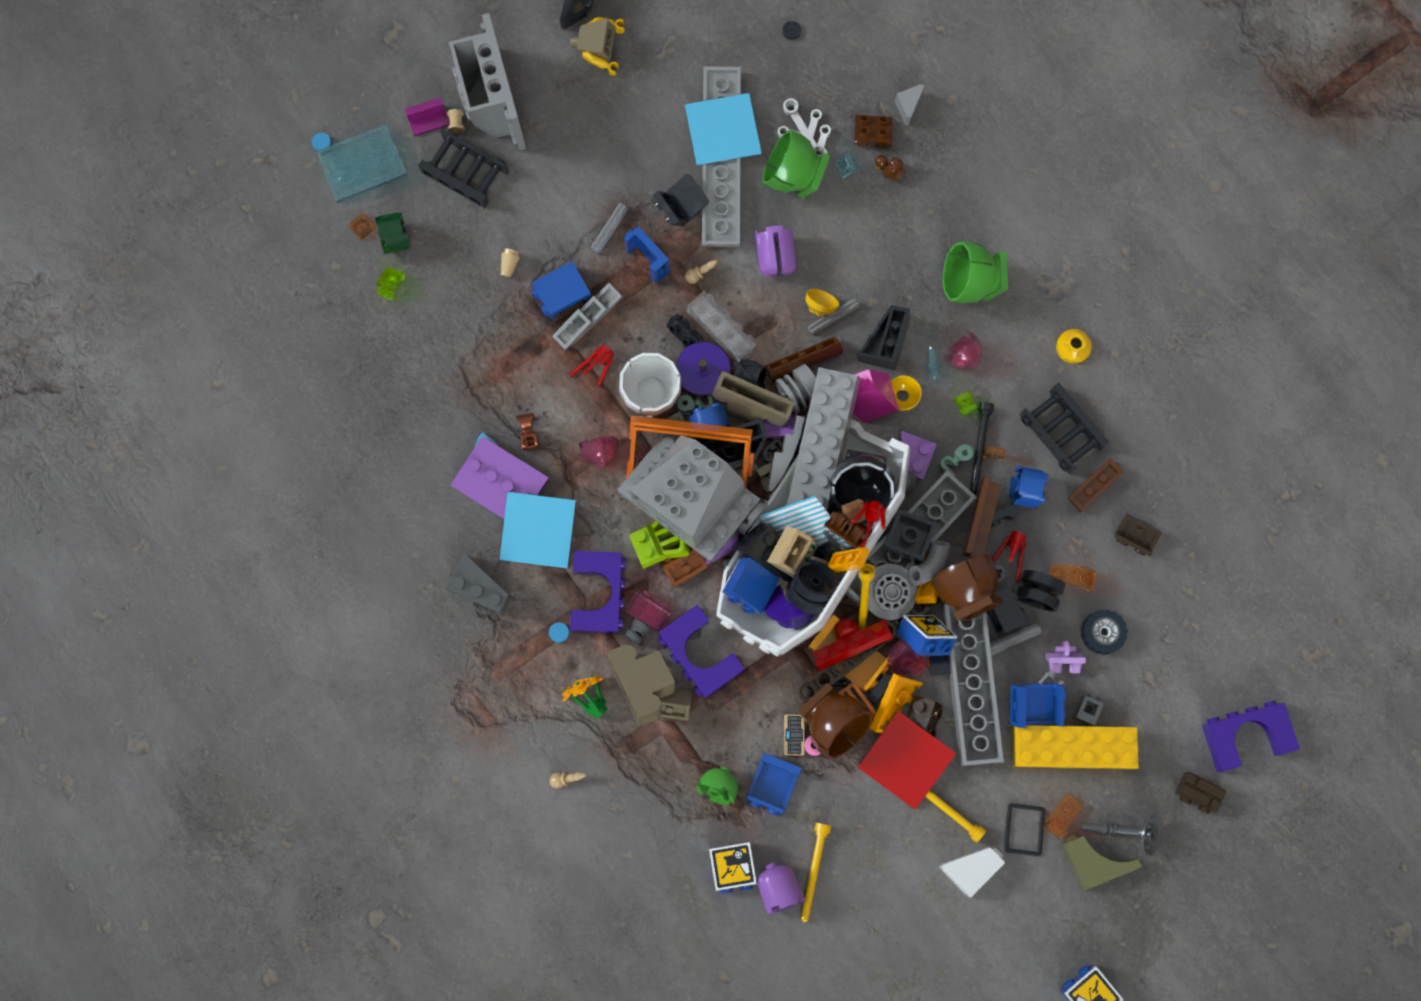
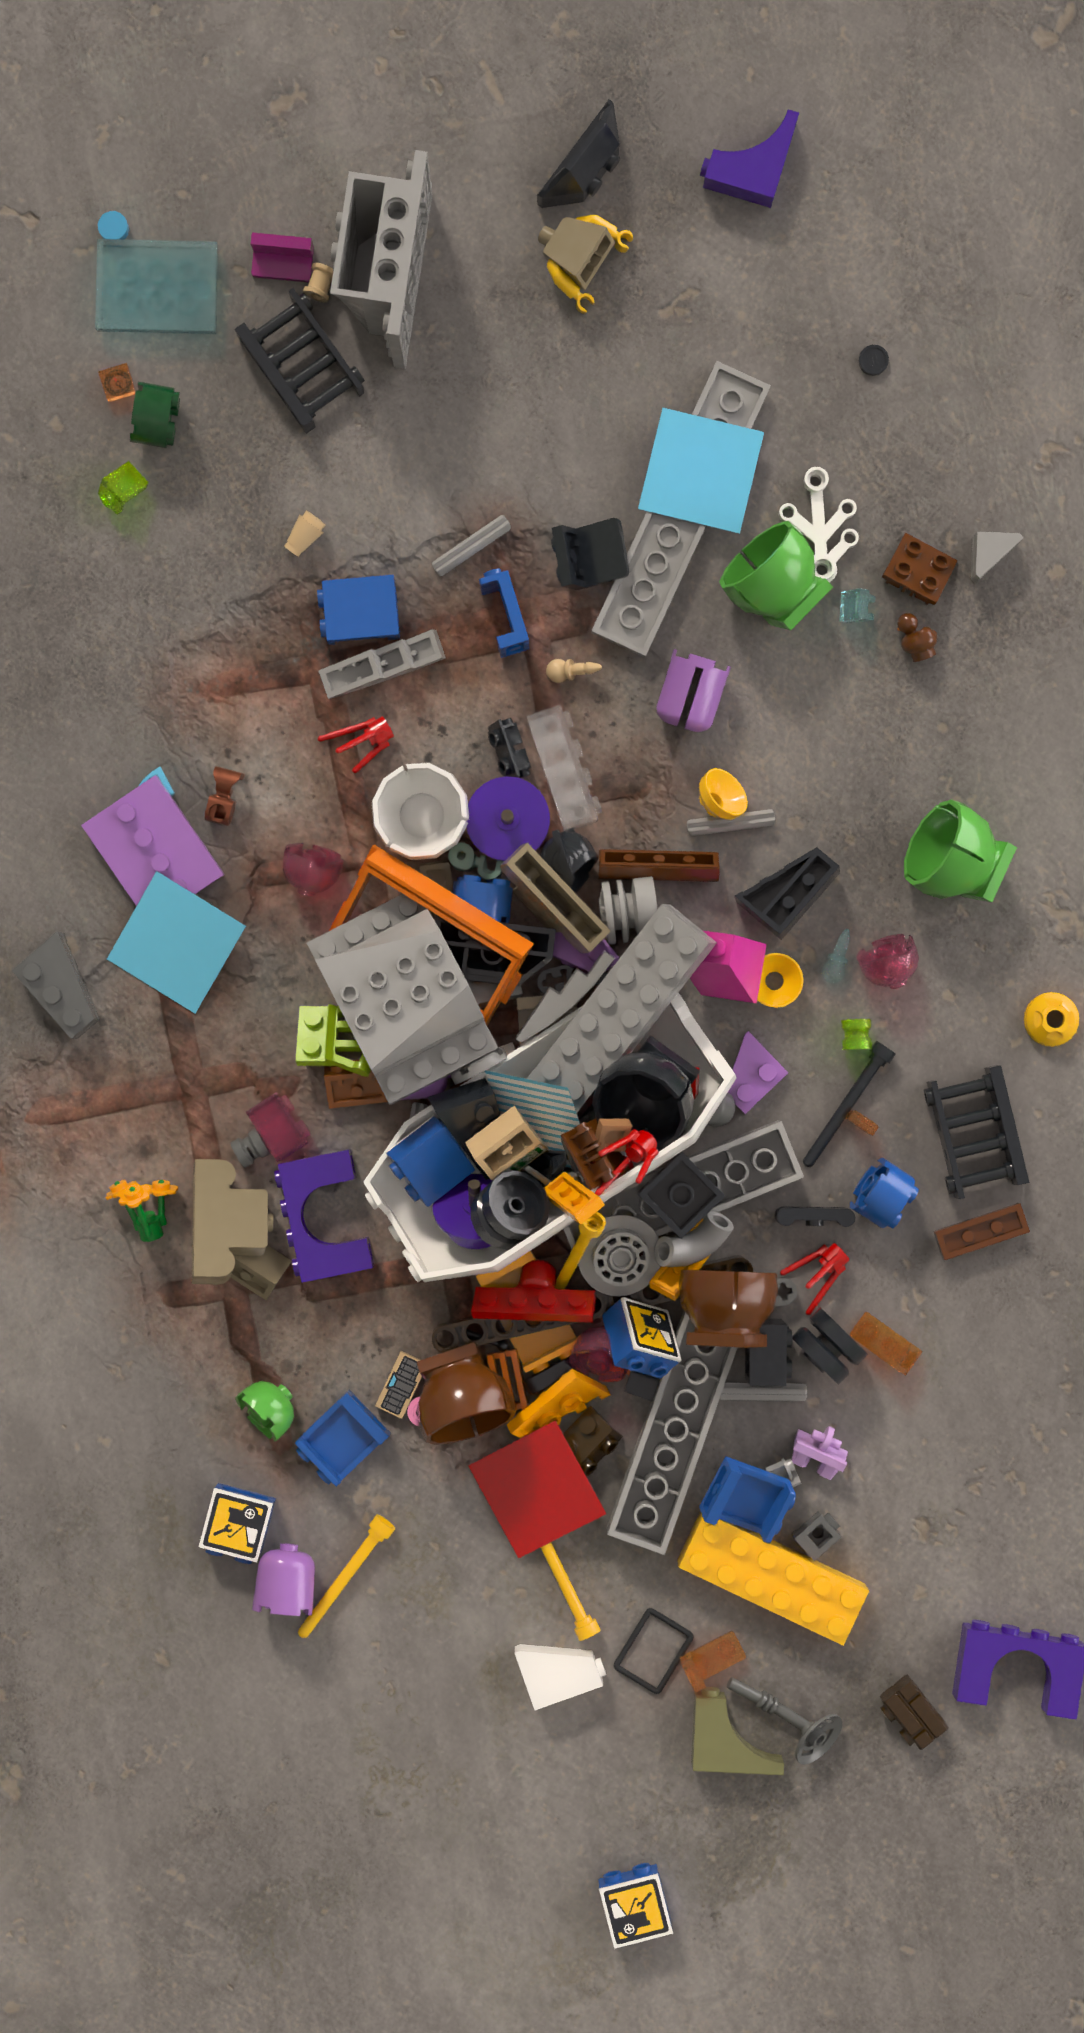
camera: 25 degrees right, 10 degrees up
(559, 632) = (144, 1099): dark azure tile -> none
(559, 780) = (57, 1300): tan bar -> none
(607, 618) = (254, 1042): dark purple arch -> none
(961, 456) = (815, 1104): sand green leg -> none
(982, 518) = (796, 1211): reddish brown fence -> none
(1115, 632) = (909, 1439): black wheel -> none
(1137, 534) = (1004, 1328): dark brown bracket -> none

